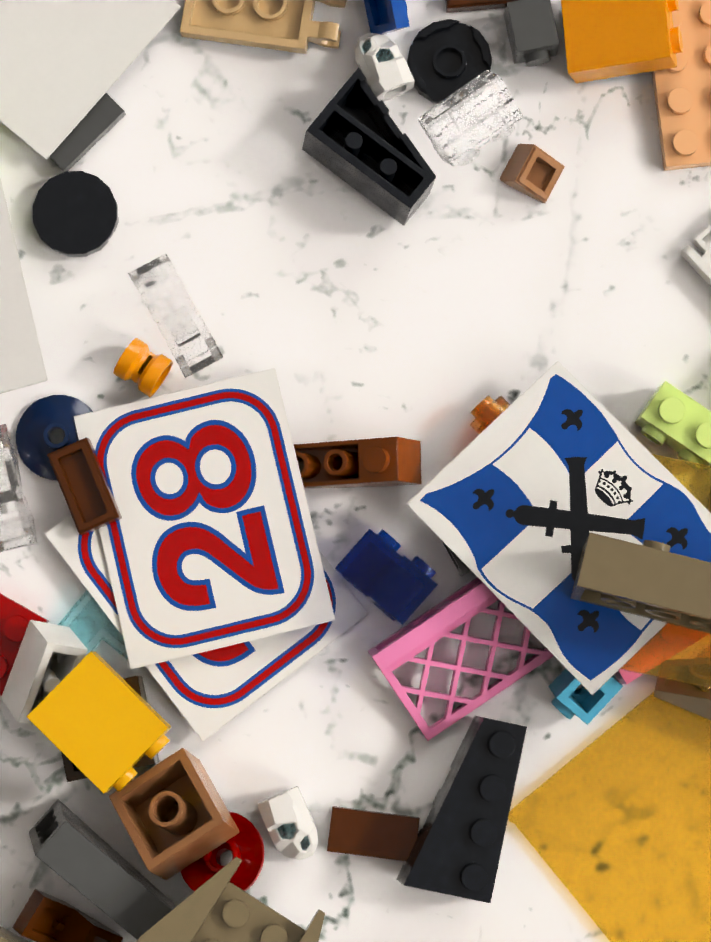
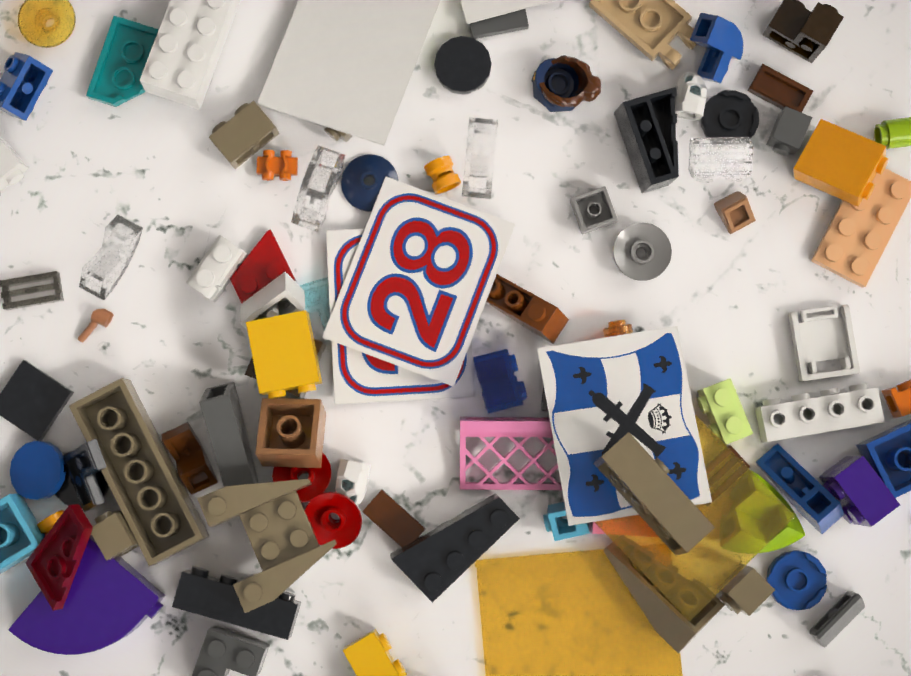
camera: 40 degrees right, 0 degrees up
(84, 486) = (365, 218): reddish brown tile -> none
(218, 153) = (564, 83): none -> piece
(299, 902) = (328, 529): none -> red dish
(359, 286) = (593, 210): none -> light grey piece
(453, 275) = (650, 239): none -> light grey dish

